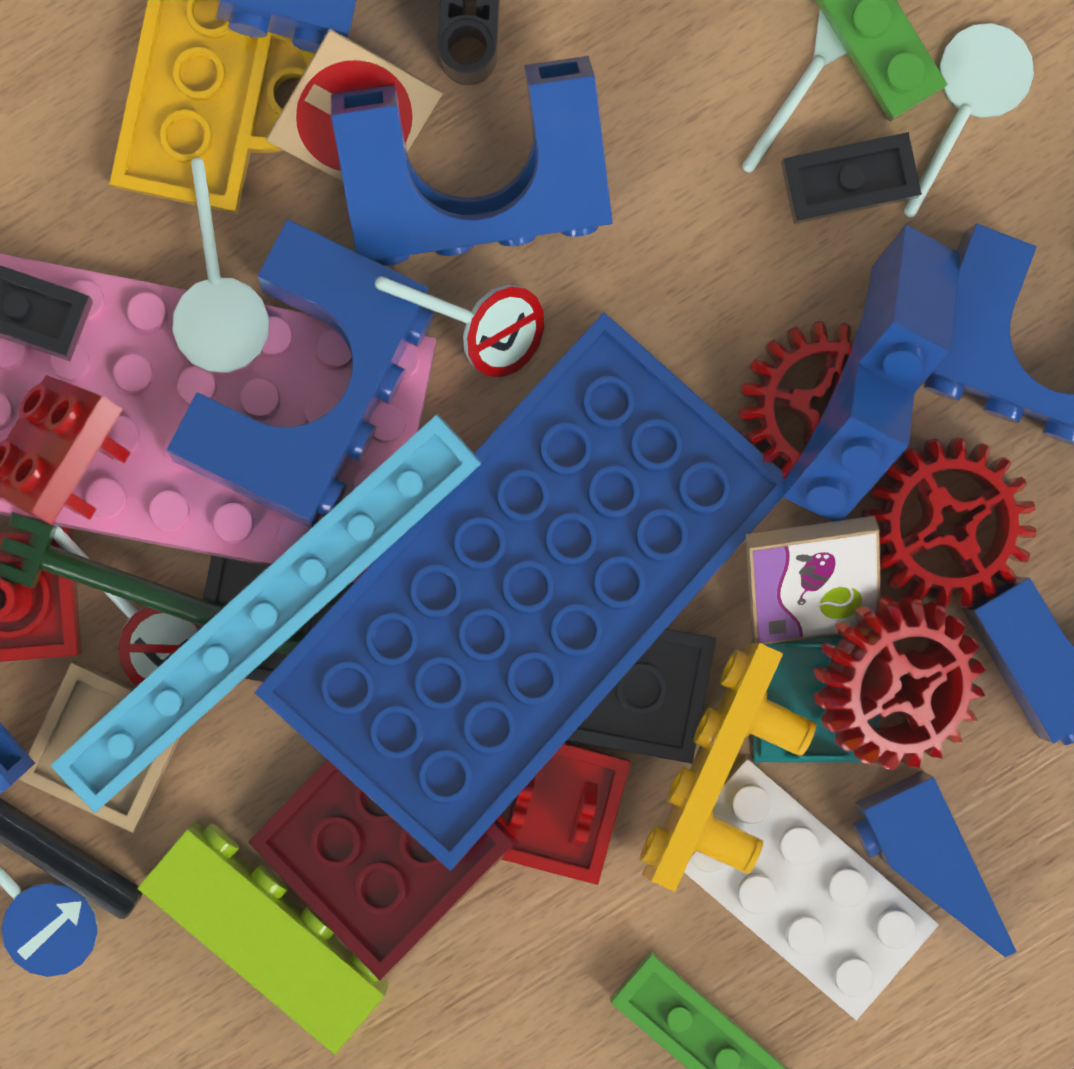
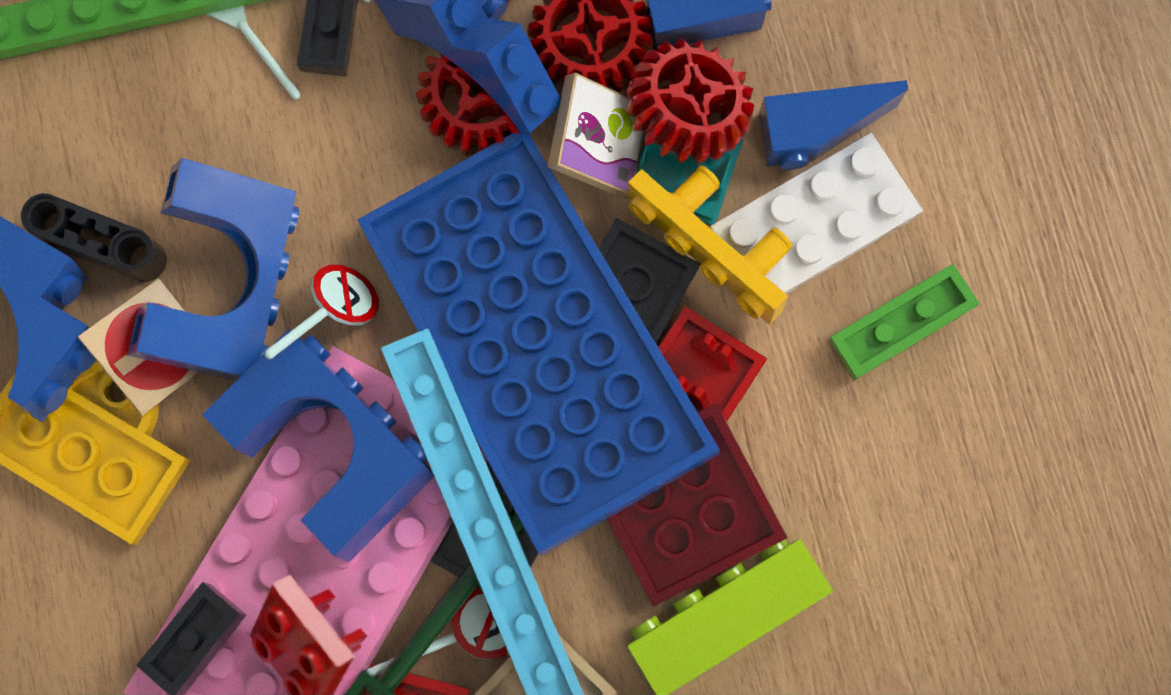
camera: 65 degrees left, 10 degrees down
(220, 319) = (259, 495): light aqua piece -> none

